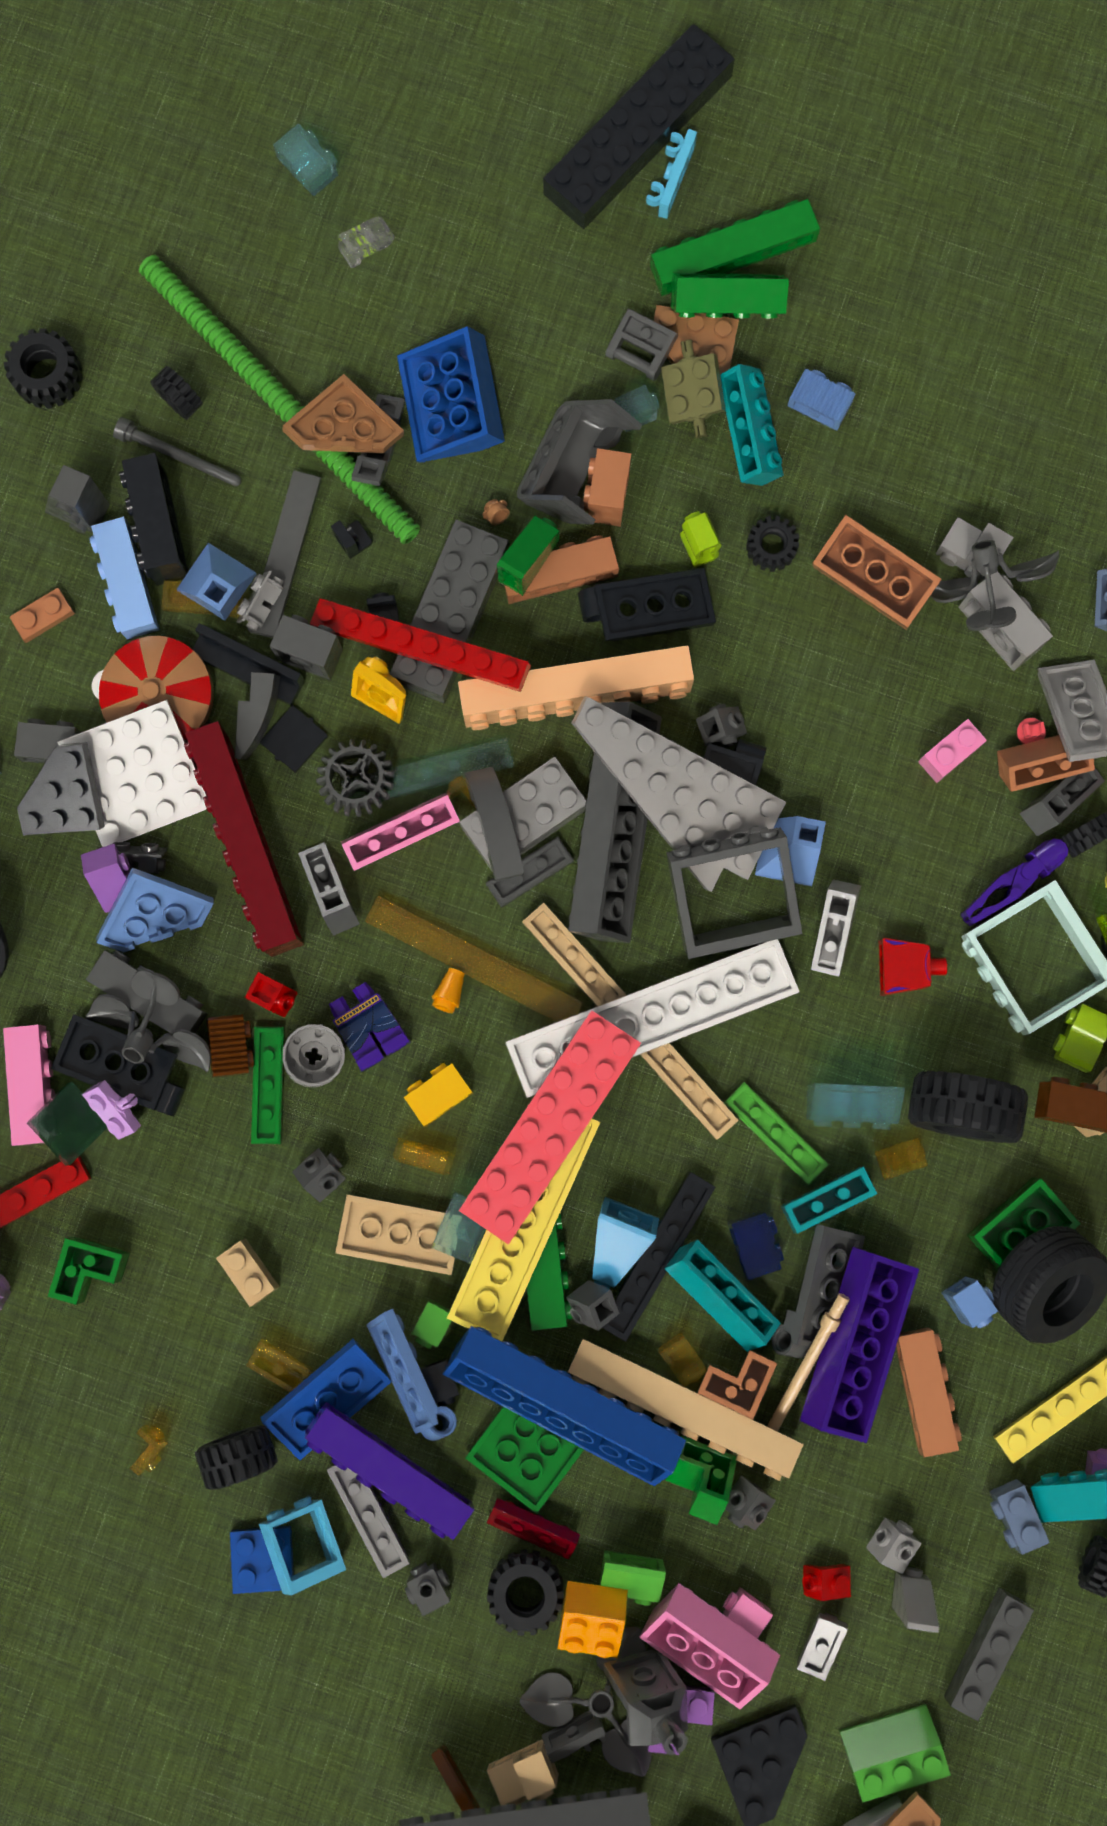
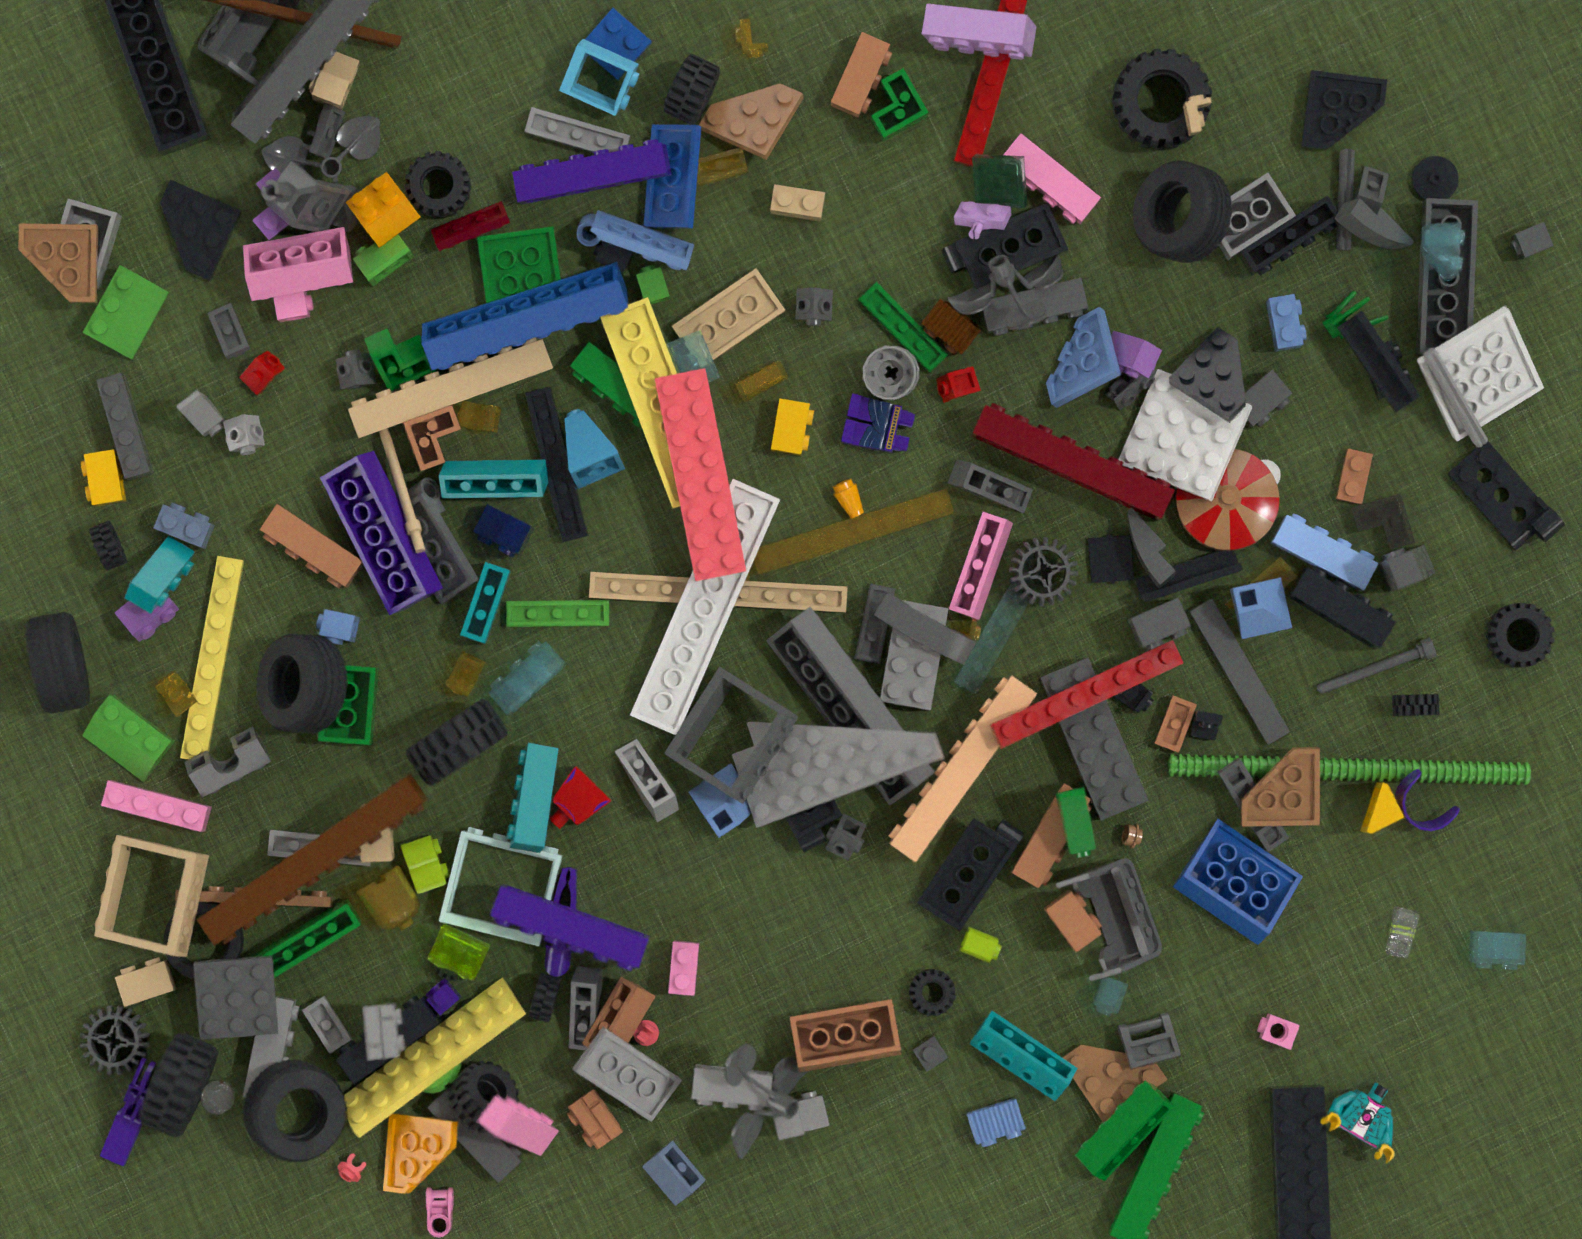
camera: 135 degrees right, 5 degrees up
(46, 559) = (1389, 514): none -> clear smoke plate
(90, 1325) = (861, 75): none -> nougat brick
(213, 1379) = (753, 119): none -> medium nougat plate
(263, 332) = (1431, 825): none -> dark purple piece
(264, 590) = (1221, 614): light grey hinge -> none
(286, 339) = (1381, 809): none -> yellow slope
(375, 562) = (1175, 724): none -> nougat plate
(378, 688) = (1088, 642): yellow slope -> none
(428, 1598) = (492, 122): dark grey brick -> none
(534, 247) = (1289, 1031): none -> bright pink brick
(536, 129) = (1364, 1118): none -> torso
(592, 1305) = (567, 394): dark grey brick -> none
(674, 172) = (1246, 1182): medium azure plate -> none
(693, 389) = (1085, 1043): olive plate -> none
(820, 501) = (930, 1053): none -> dark grey plate
(945, 1001) = (533, 797): none -> teal brick
(1019, 865) = (569, 926): none -> dark purple brick
(1049, 1627) = (103, 477): none -> yellow brick

